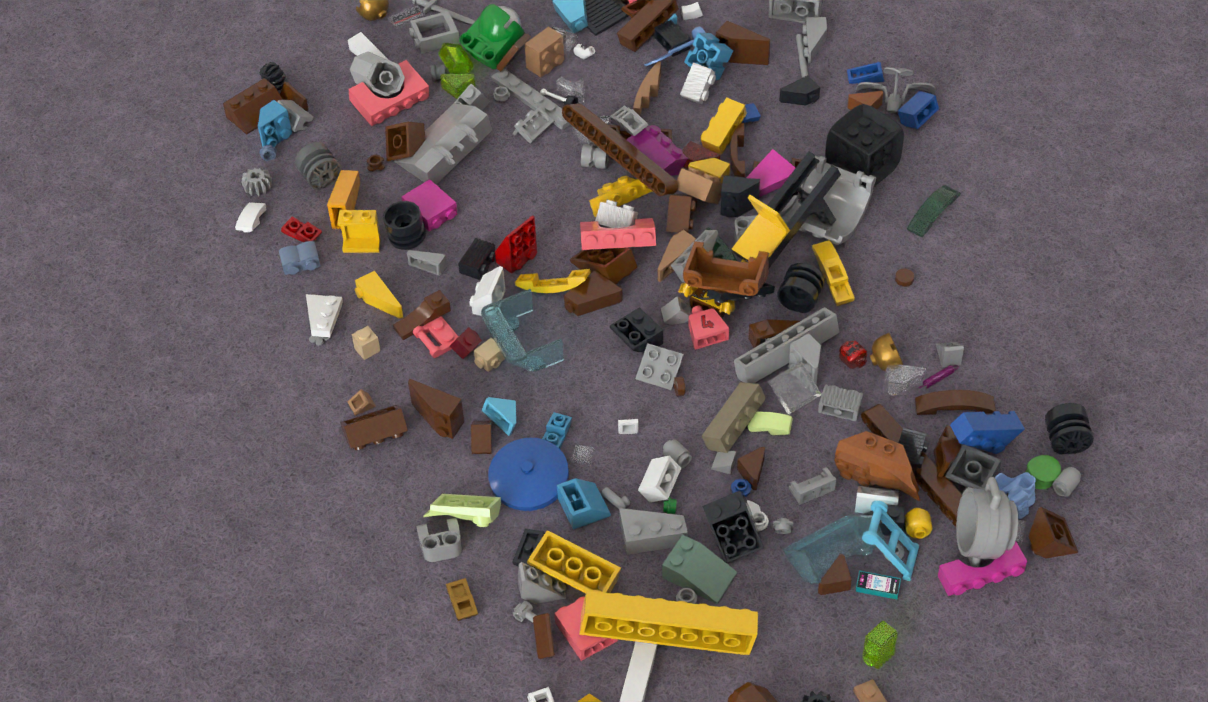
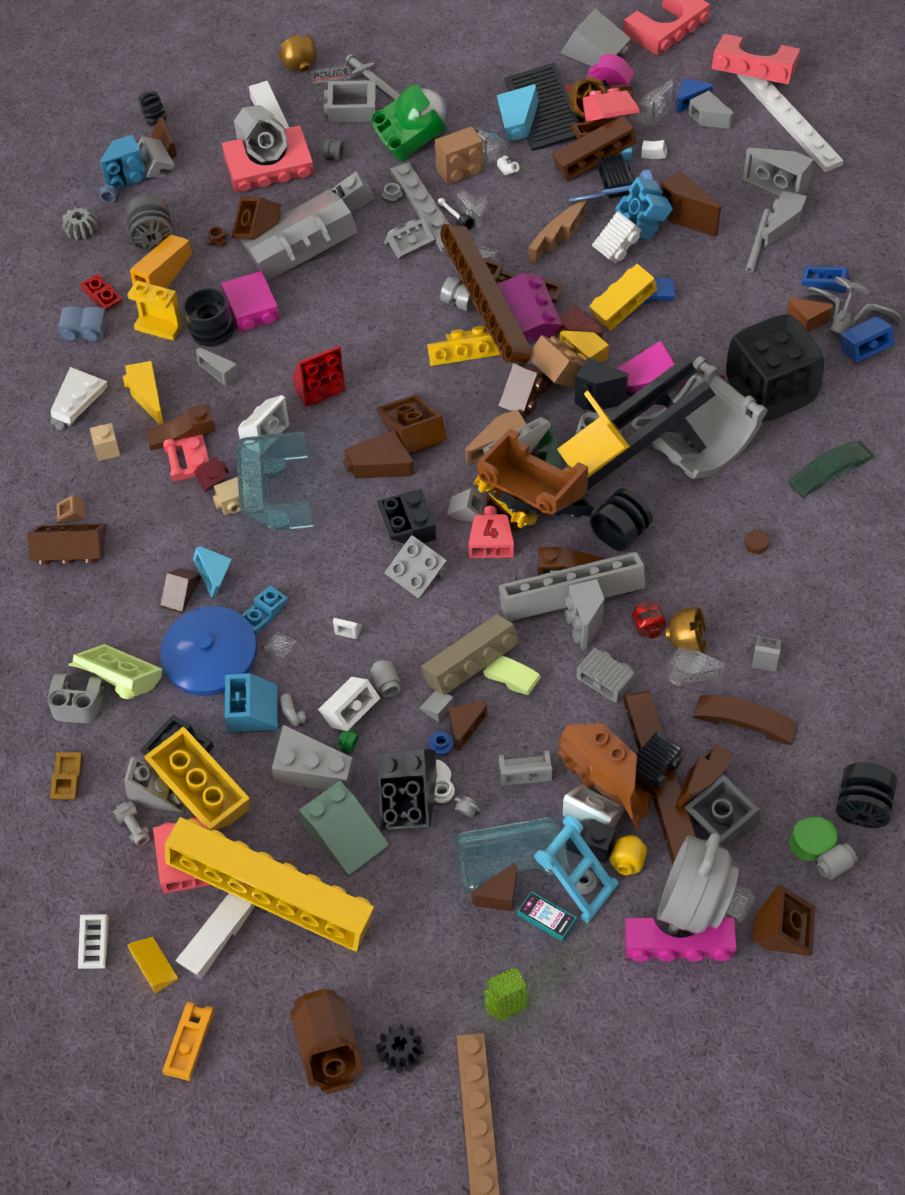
camera: 20 degrees right, 5 degrees up
(245, 107) = (103, 131): reddish brown slope -> none
(250, 216) = (52, 262): white slope -> none
(438, 408) = (145, 545): reddish brown slope -> none
(455, 59) = (358, 139): clear neon green brick -> none
(456, 83) = (346, 165): clear neon green slope -> none
(477, 259) = (272, 378): black brick -> none
(513, 52) = (421, 147): reddish brown tile -> none
(532, 282) = (321, 425): yellow slope -> none
(543, 636) = (131, 851): reddish brown slope -> none
(614, 216) = (450, 373): white brick -> none
(629, 120) = (514, 261): light grey slope -> none
(633, 236) = (410, 390): coral arch -> none
(679, 386) = (427, 597): reddish brown tile -> none
(687, 592) = (312, 851): light grey plate -> none
(737, 140) = (634, 317): reddish brown slope -> none
(794, 387) = (555, 641): clear slope -> none
(800, 92) = (735, 280): black slope -> none
(834, 272) = (671, 512): yellow slope -> none
(939, 376) = (742, 677): magenta piece -> none
(985, 431) = (759, 767): blue wedge -> none
(1020, 490) = (769, 857): light blue piece -> none

